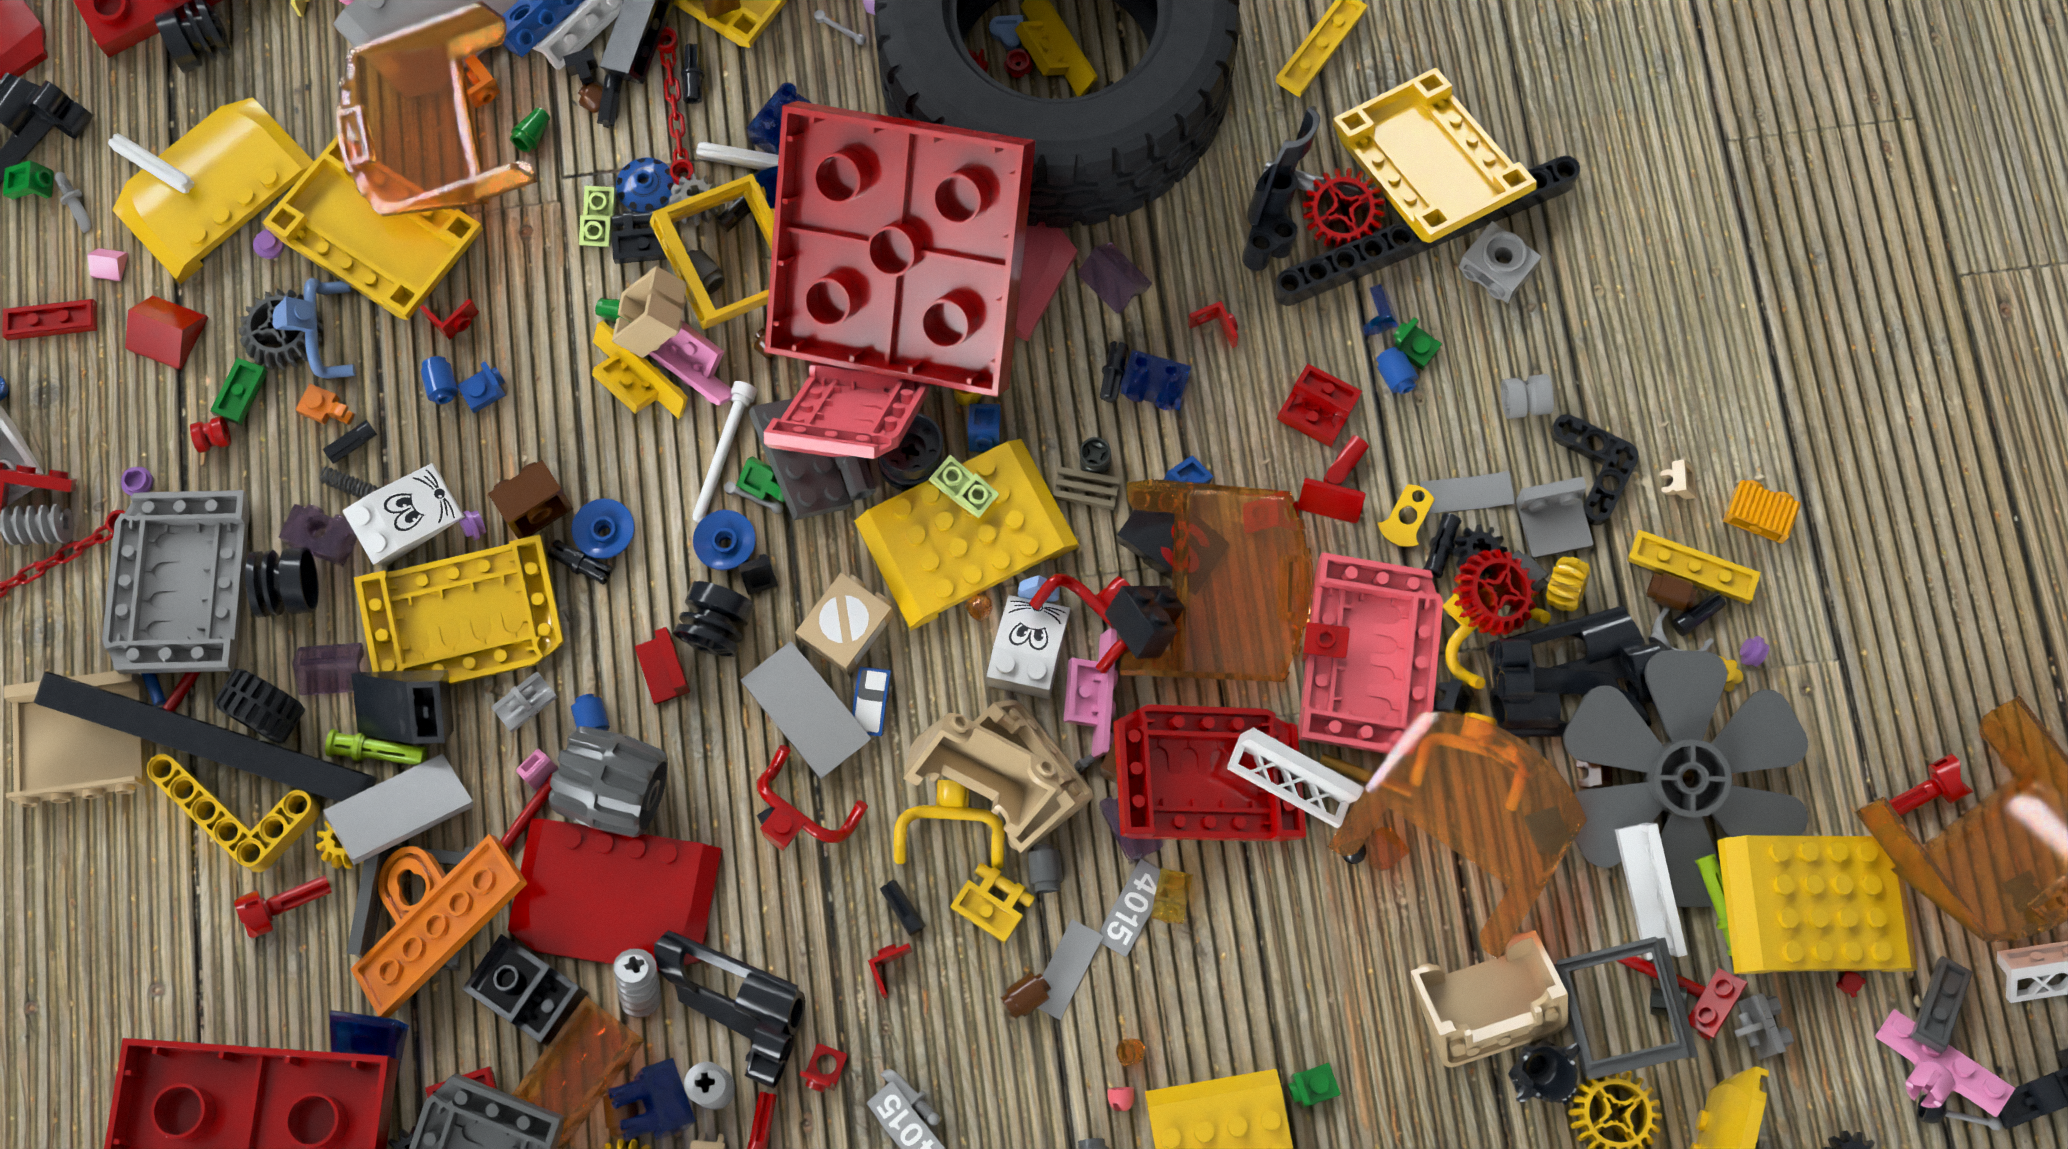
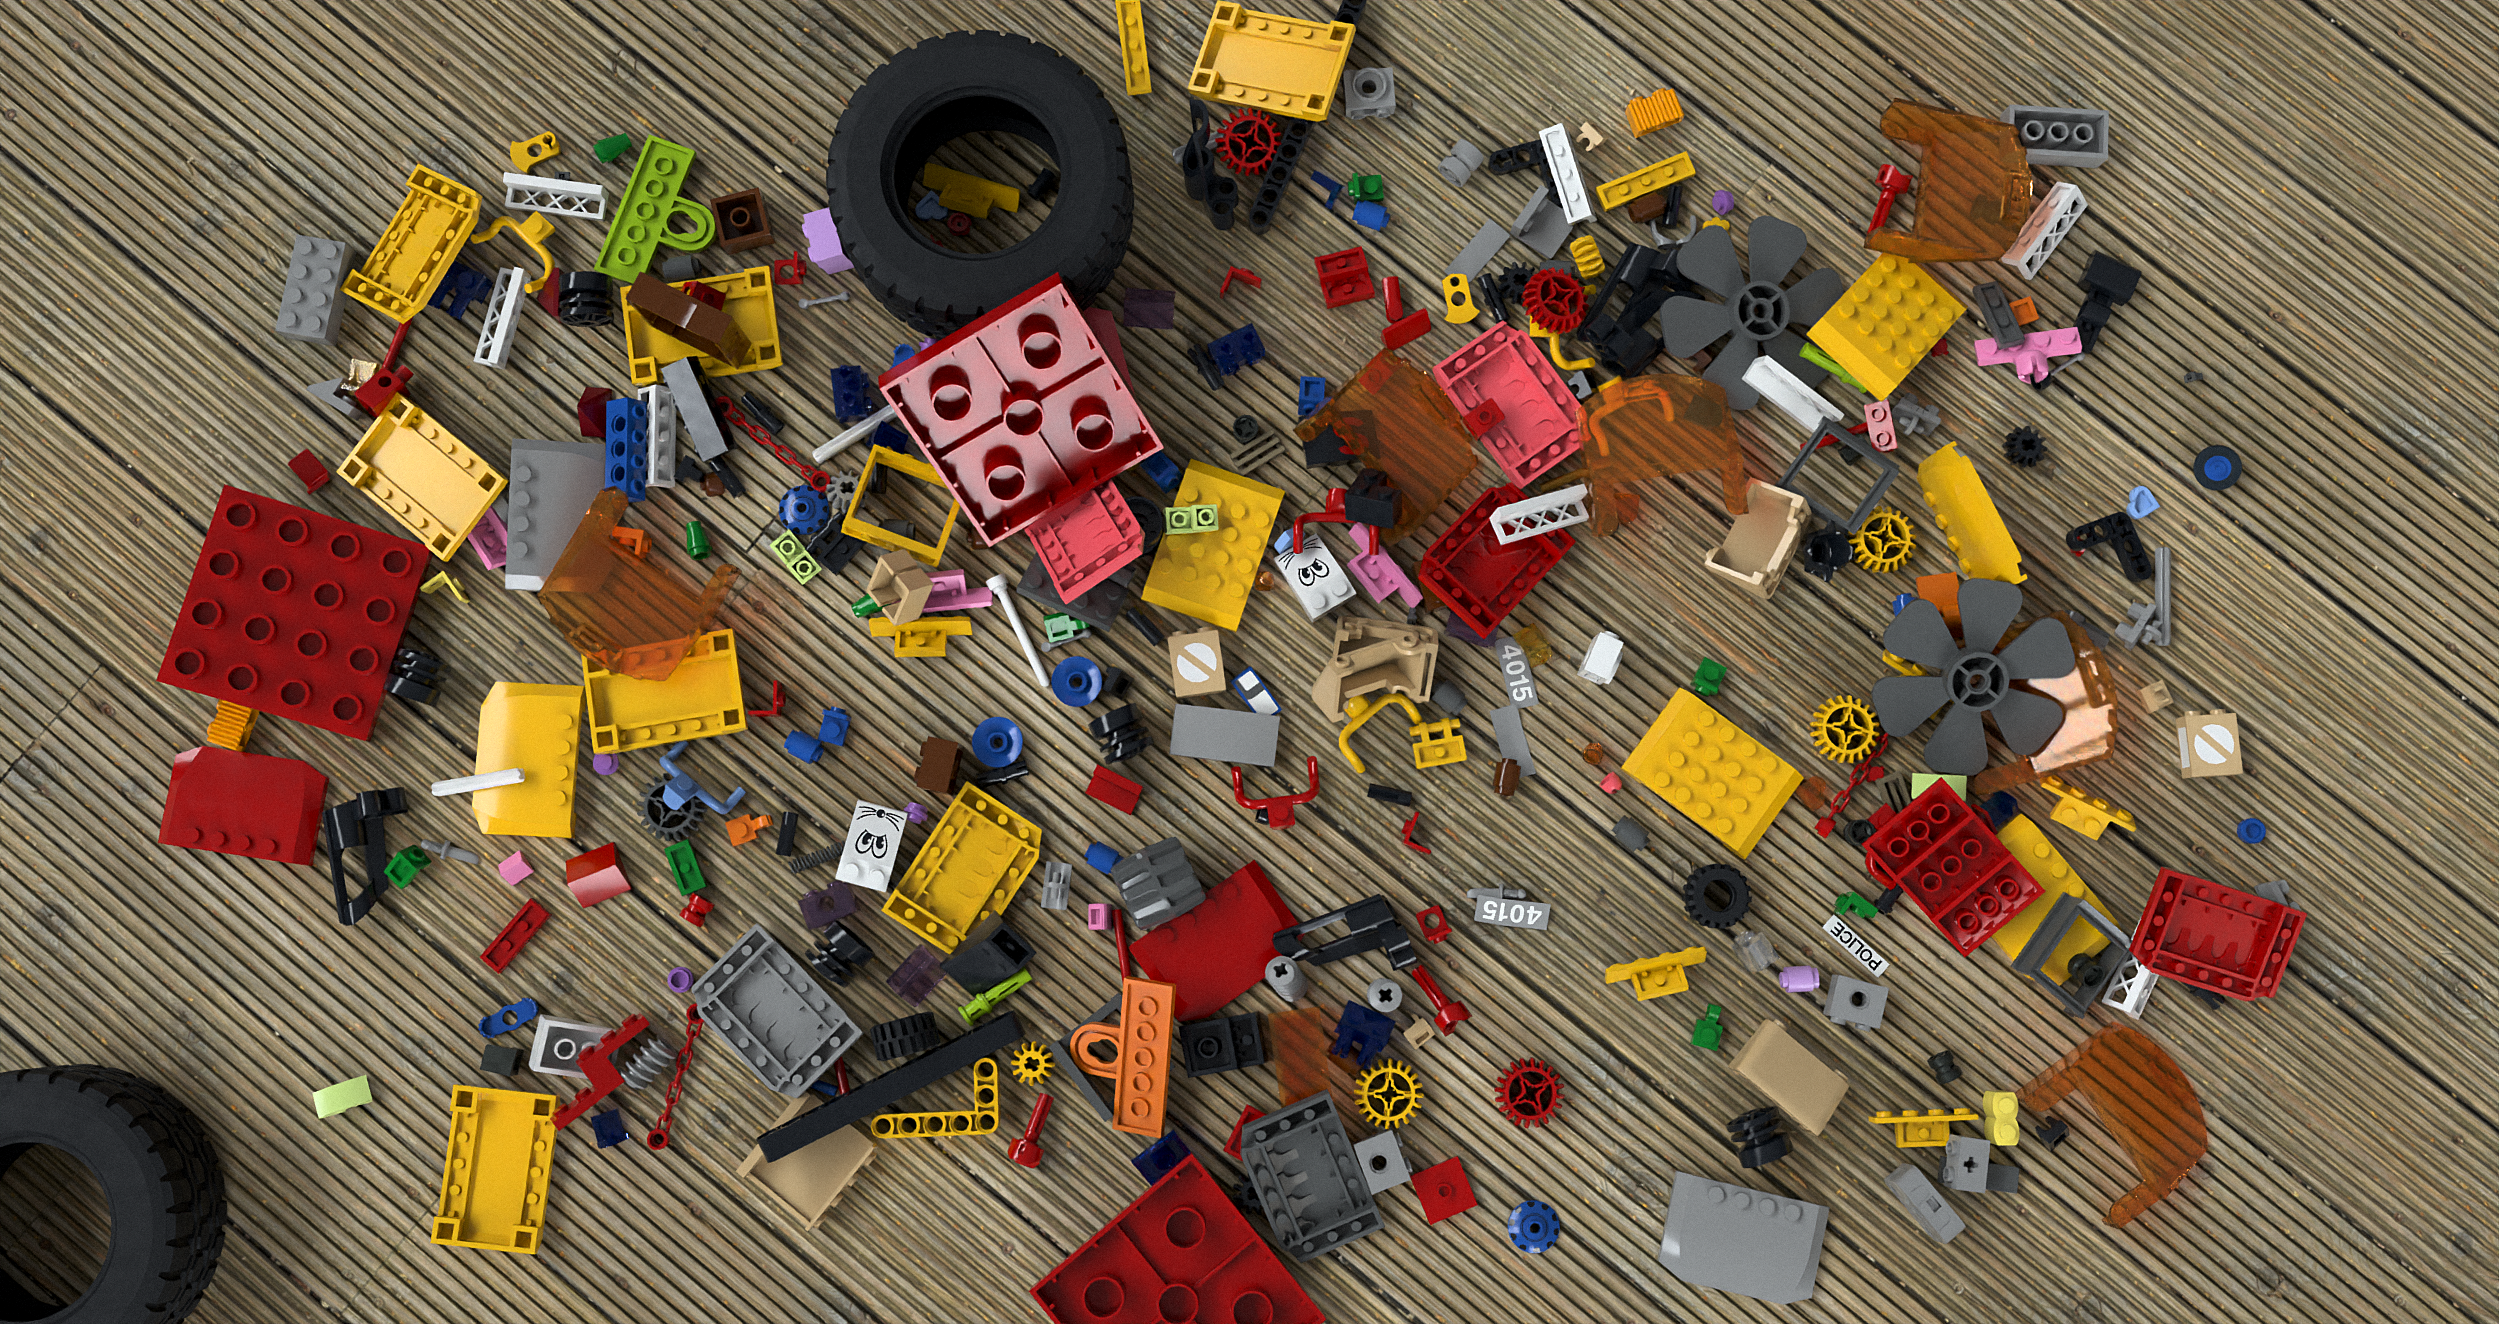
camera: 50 degrees left, 10 degrees up
(398, 809) = (1048, 1015): light grey tile -> none
(834, 547) = (1144, 625): none -> black piece
(1223, 966) = (1602, 658): none -> white brick
(1622, 494) = (1567, 174): none -> white fence
(1972, 1026) = (2024, 311): none -> orange plate

